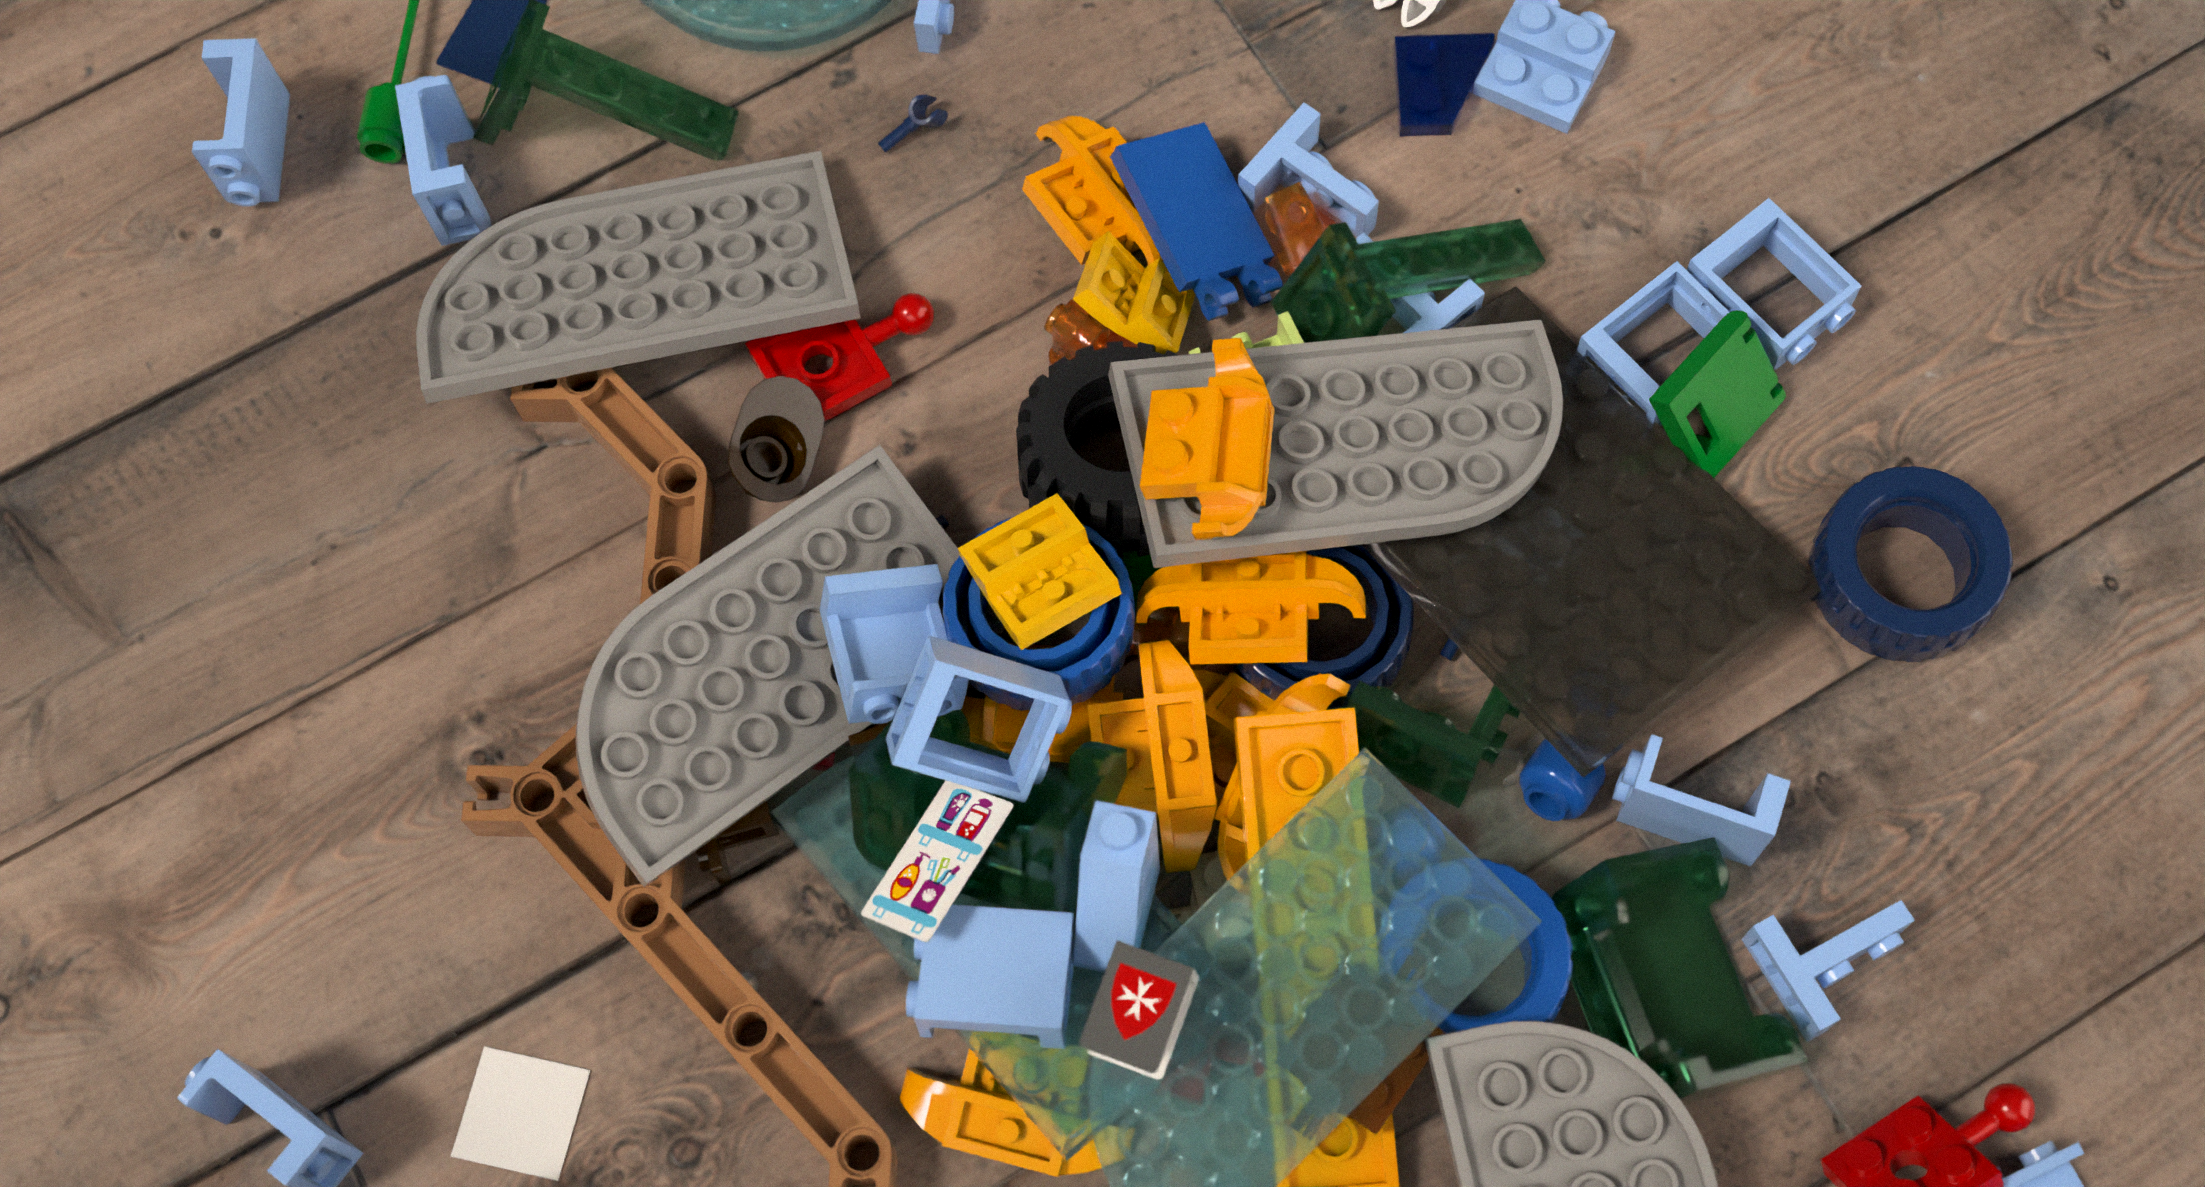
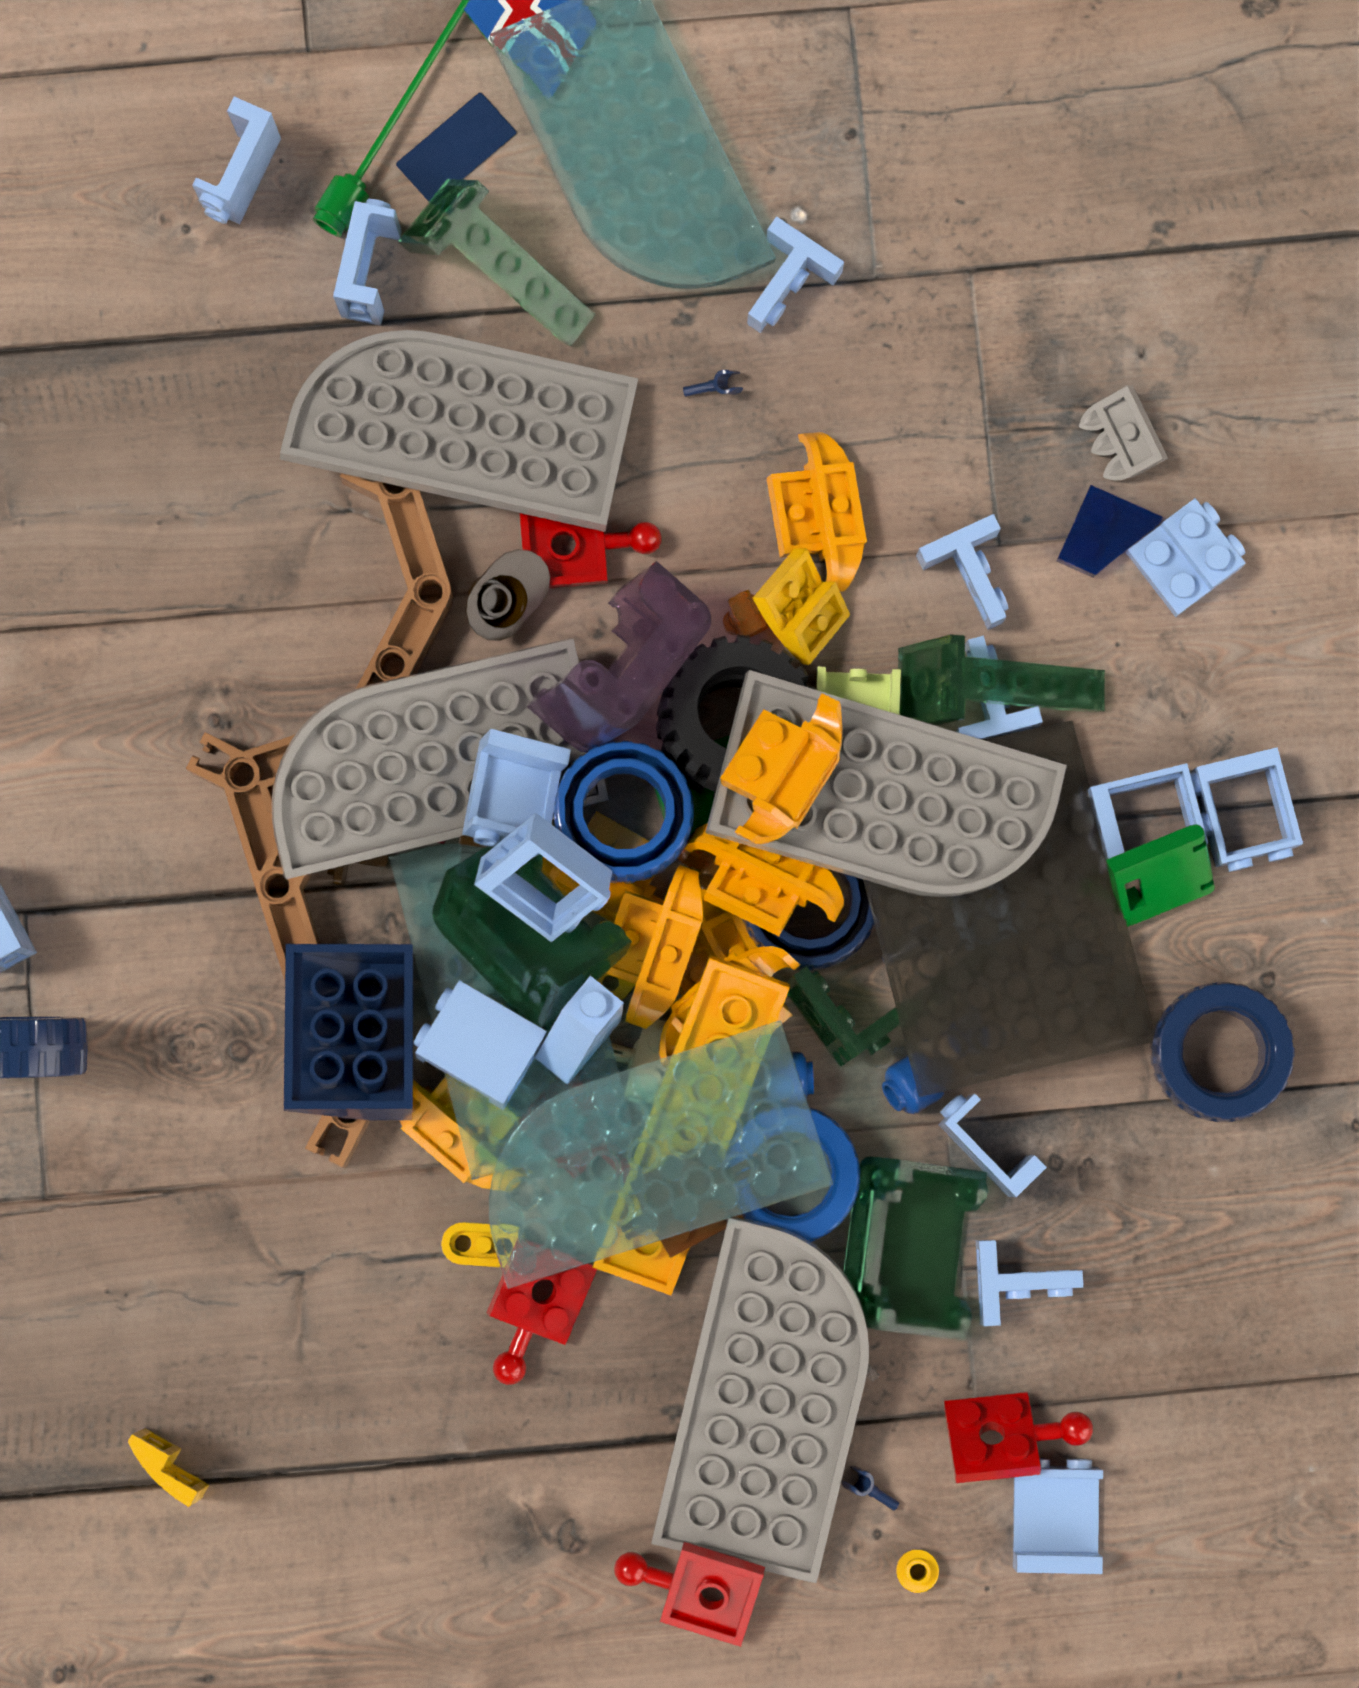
camera: 20 degrees right, 15 degrees up
(520, 1113) = (146, 975): white sticker -> none
(817, 1042) = (349, 1030): none -> dark blue slope
(937, 860) = (476, 957): sticker -> none
(950, 469) = (661, 629): none -> clear purple windscreen
(1039, 571) = (632, 793): yellow slope -> none
(1139, 1010) = (554, 1120): piece -> none
(1198, 217) = (876, 563): blue tile -> none
(1294, 237) = (944, 614): clear orange plate -> none

